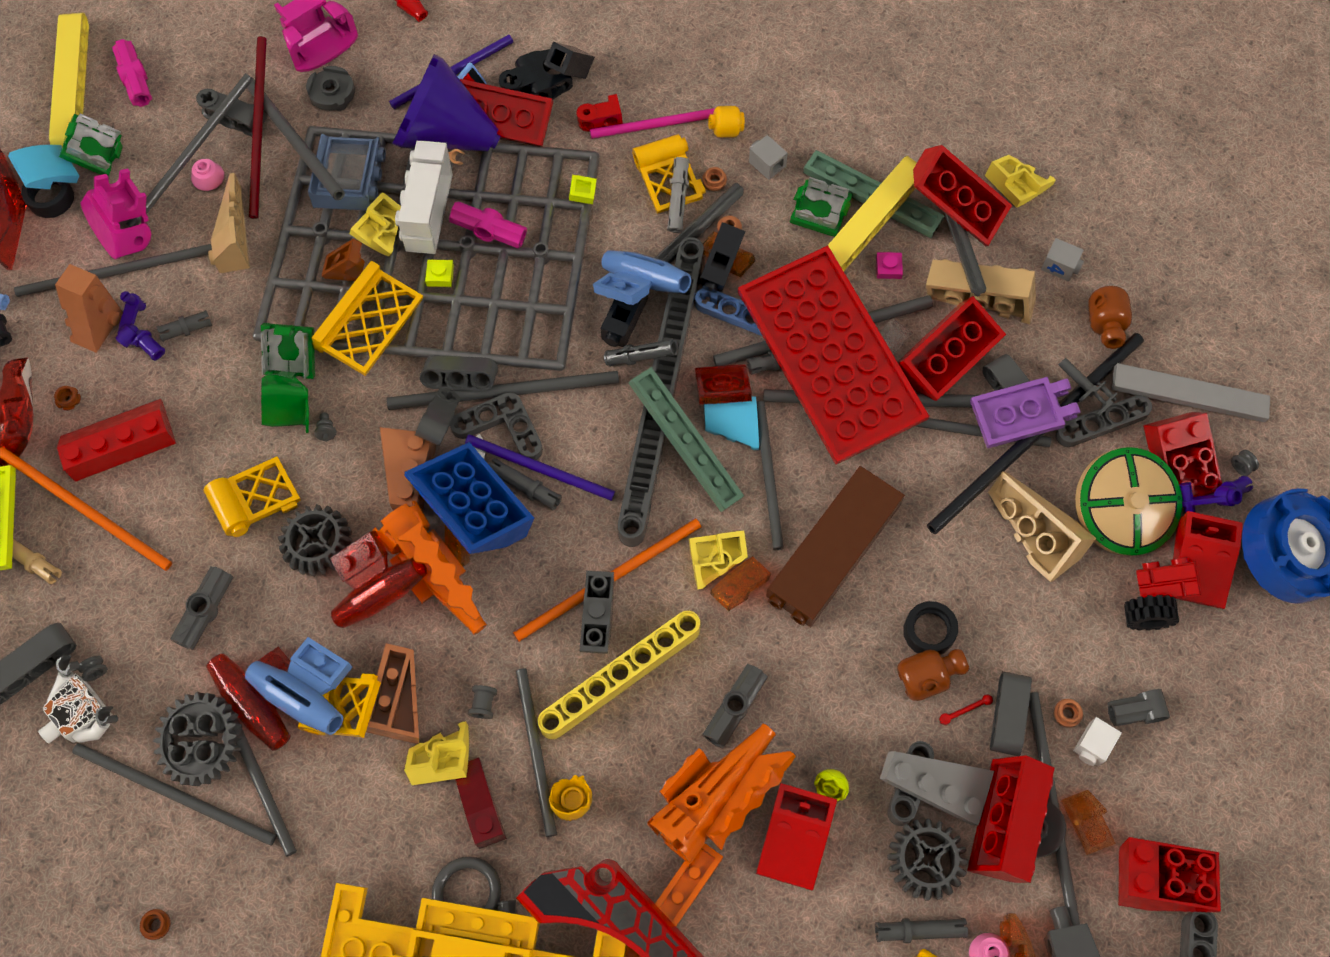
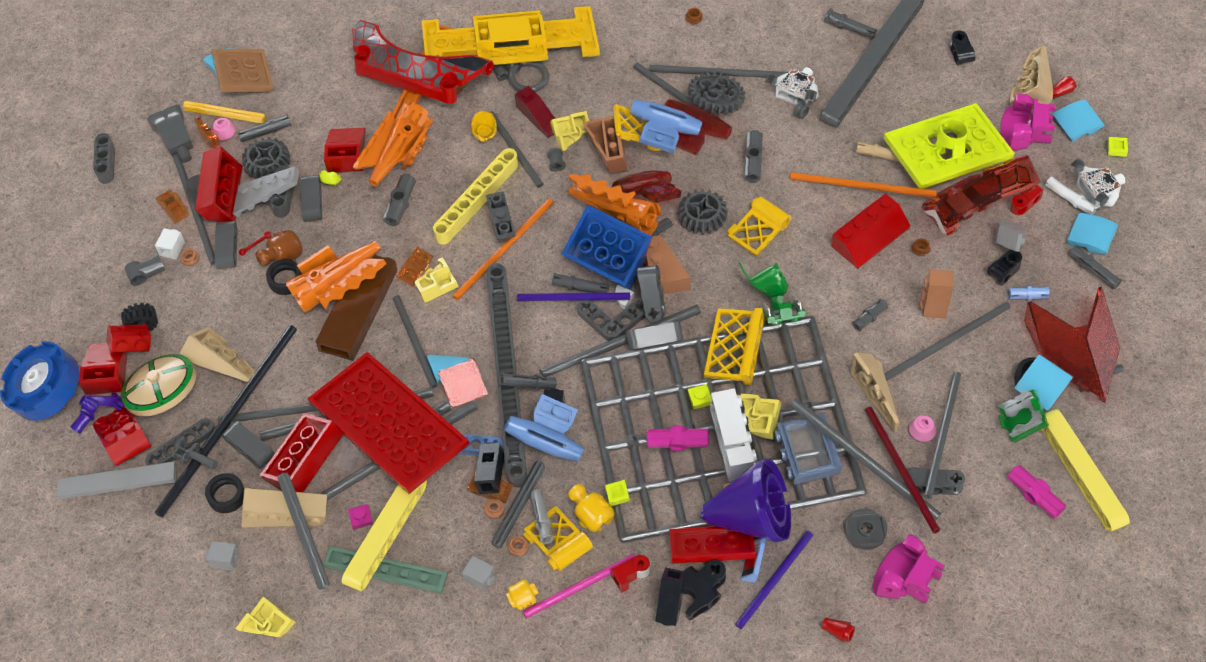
camera: 165 degrees right, 10 degrees down
(113, 204) = (966, 367): dark pink piece -> none
(129, 334) = (904, 297): dark purple pin -> none
(325, 429) = (731, 276): dark grey hair -> none
(344, 262) = (772, 377): dark orange slope -> none
(618, 187) = (591, 508): none -> yellow piece
(686, 439) = (476, 332): sand green plate -> none
(821, 206) = (424, 544): piece -> none
(861, 578) = (329, 276): none -> orange piece
(868, 757) = (311, 198): none -> dark grey beam
(960, 193) = (312, 562): red slope -> none
(1022, 411) = (238, 419): medium lavender tile -> none
(1057, 320) = (221, 480): none -> black tyre
(1110, 315) = (181, 518): dark orange piece -> none
(1168, 877) = (123, 183): red slope -> none
(1245, 462) = (75, 441): dark grey bush -> none

